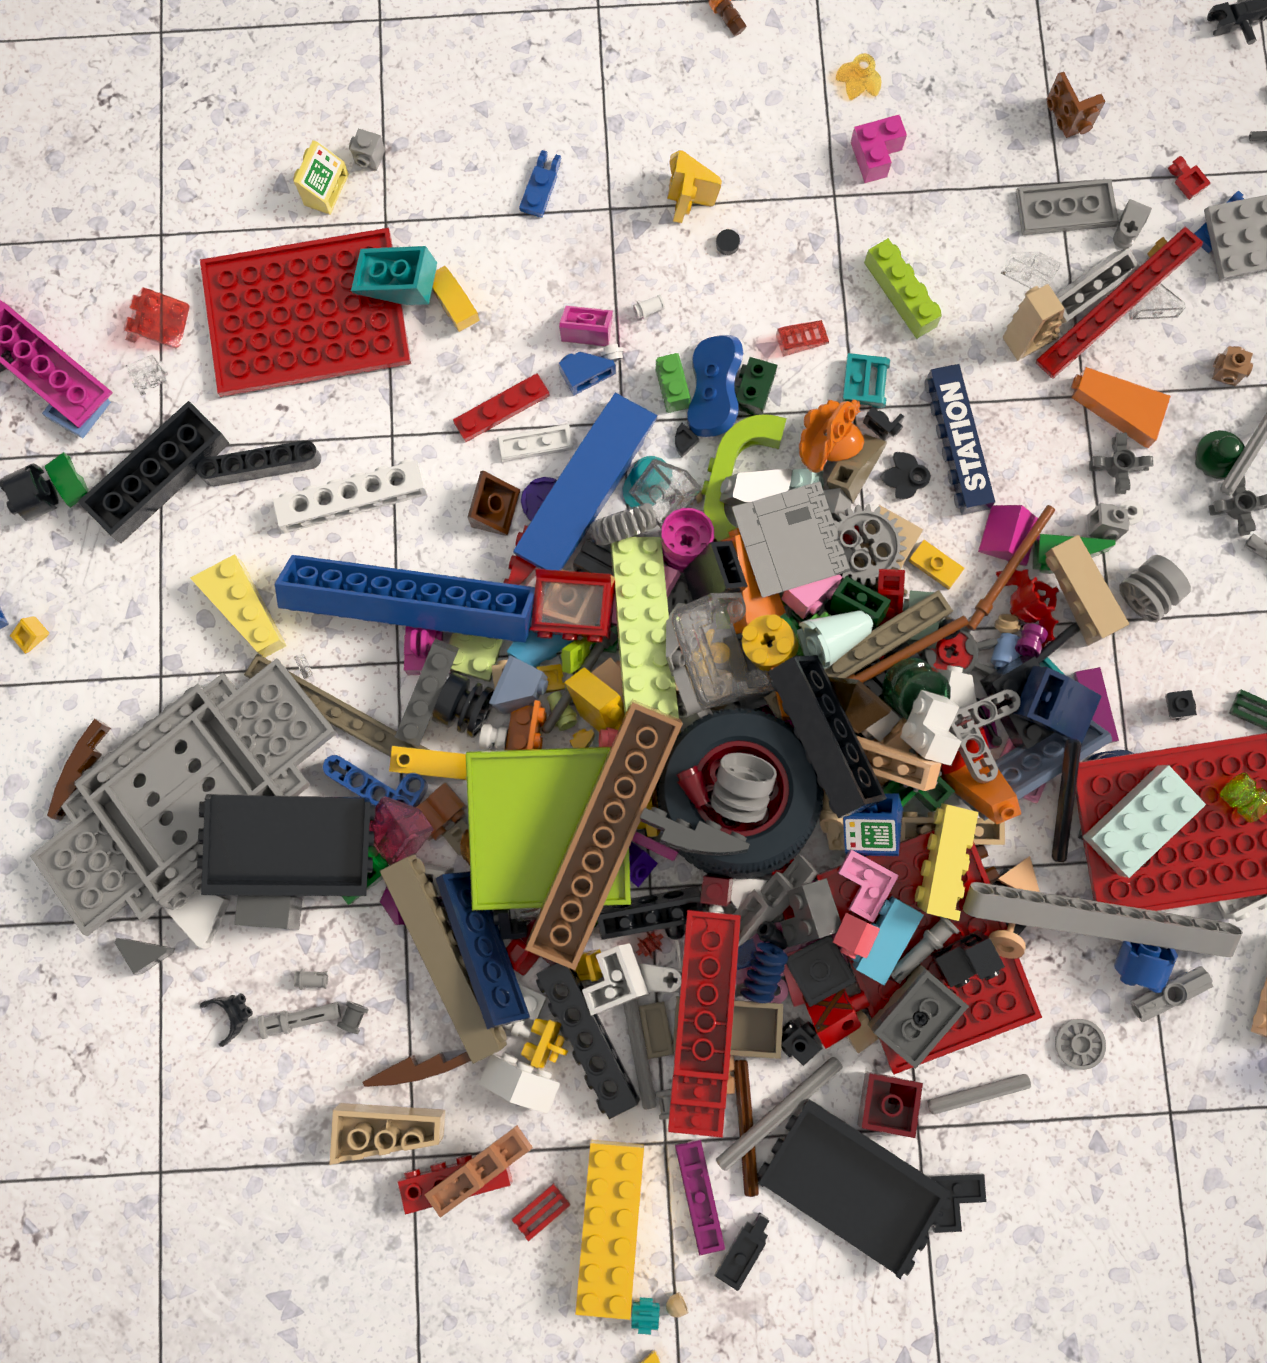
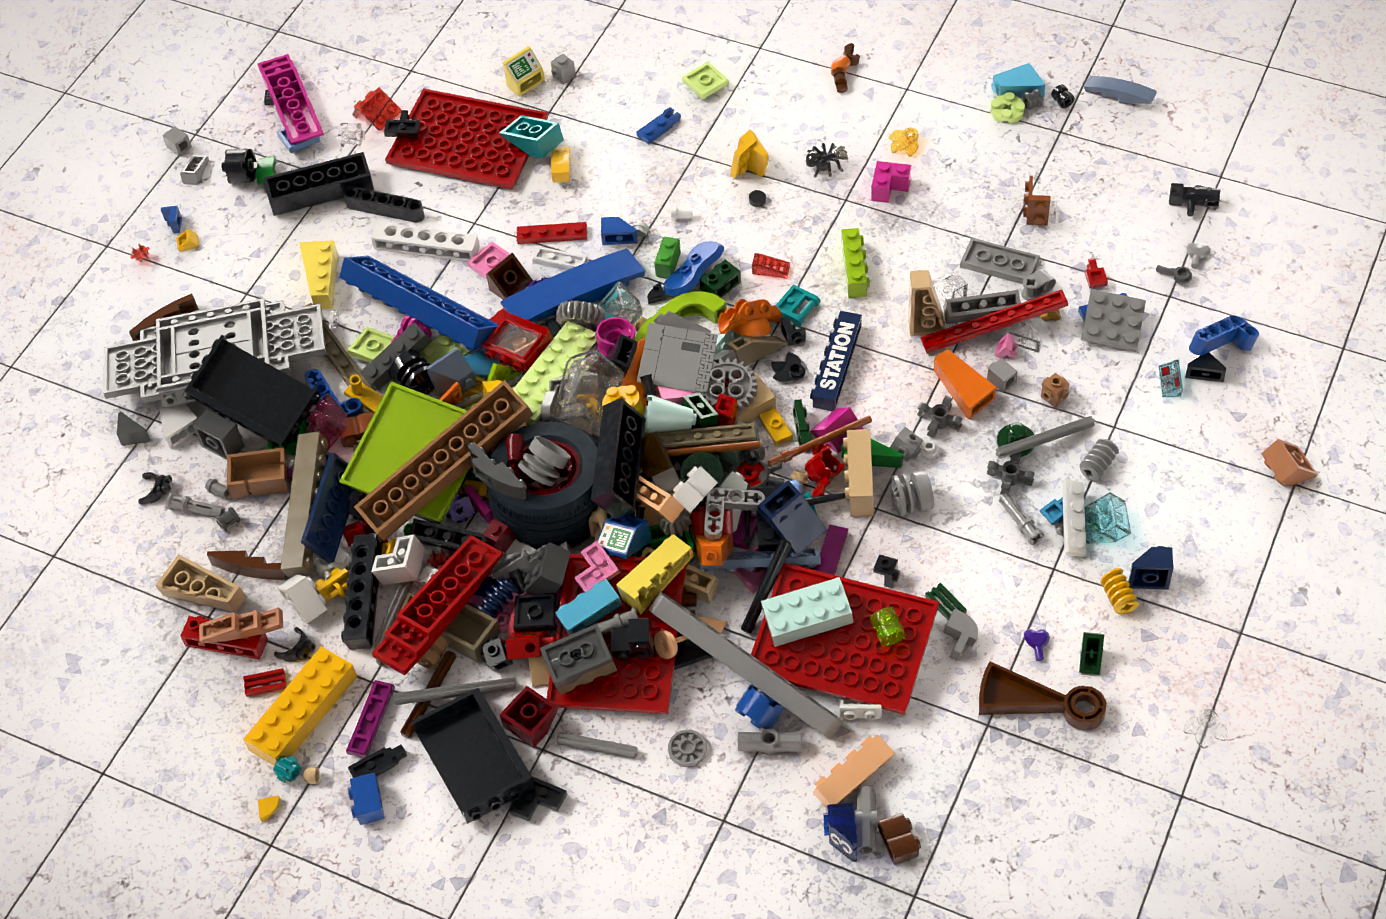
camera: 30 degrees right, 25 degrees down
(213, 335) = (402, 127): none -> black hinge
(352, 938) = (258, 473): none -> medium nougat piece
(379, 682) = (369, 344): none -> yellowish green plate
(452, 486) = (487, 259): none -> bright pink plate
(561, 89) = (705, 80): none -> yellowish green plate
(561, 1146) = (299, 651): none -> black helmet
(586, 325) = (633, 208): dark pink slope -> none
(765, 1307) = (366, 799): none -> blue brick
(776, 150) = (822, 159): none -> animal
(786, 605) = (648, 386): none -> black pin
(855, 936) = (566, 590): coral brick -> none
(970, 552) = (802, 427): none -> dark green hinge
(1032, 638) = (807, 485): magenta wheel -> none
(1142, 329) = (1006, 346): none -> bright pink tile
(1159, 371) = (1002, 375): none -> light grey brick

